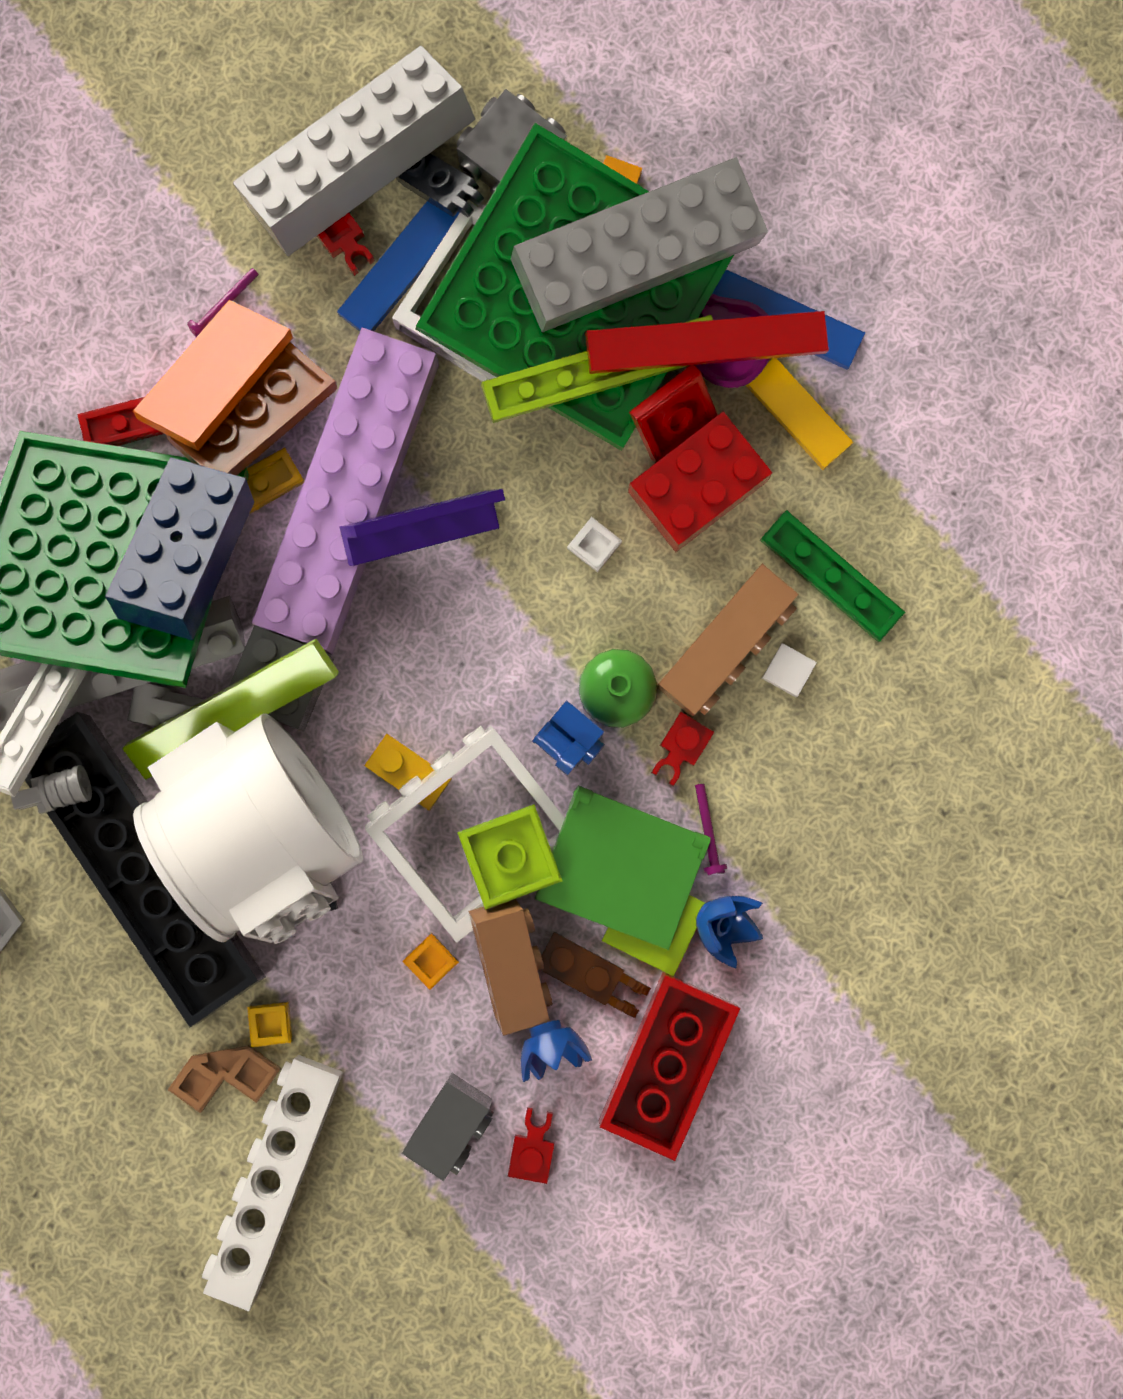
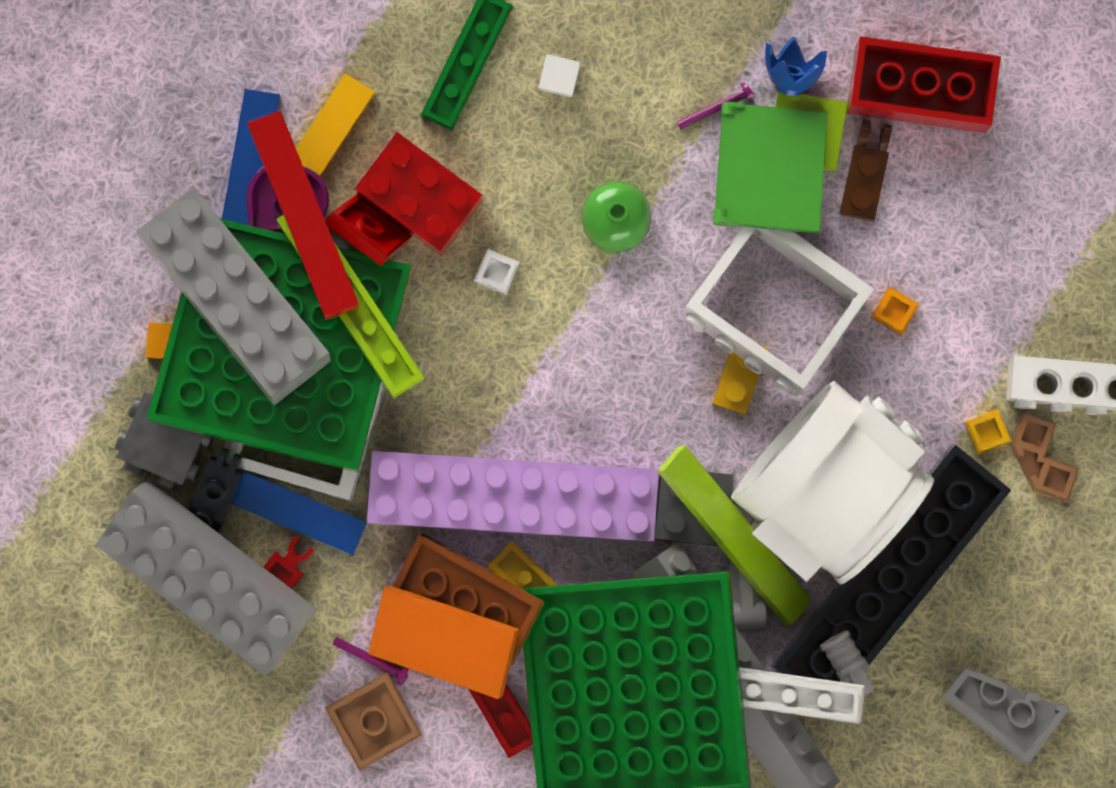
camera: 110 degrees left, 0 degrees up
(159, 287) = (373, 721): none -> medium nougat tile
(180, 548) = (611, 611): piece -> none
(421, 527) = (527, 419): dark purple fence -> none
(448, 1126) = (1028, 251): dark grey brick -> none
(509, 856) = (790, 261): lime tile -> none
(511, 966) = (880, 238): medium nougat brick -> none
(532, 1154) = (1029, 180): red plate -> none
(548, 1046) = (936, 185): blue piece -> none
(570, 738) = (676, 240): blue hinge -> none
(685, 743) = (646, 147): red plate -> none
(727, 641) = (550, 132): medium nougat brick -> none

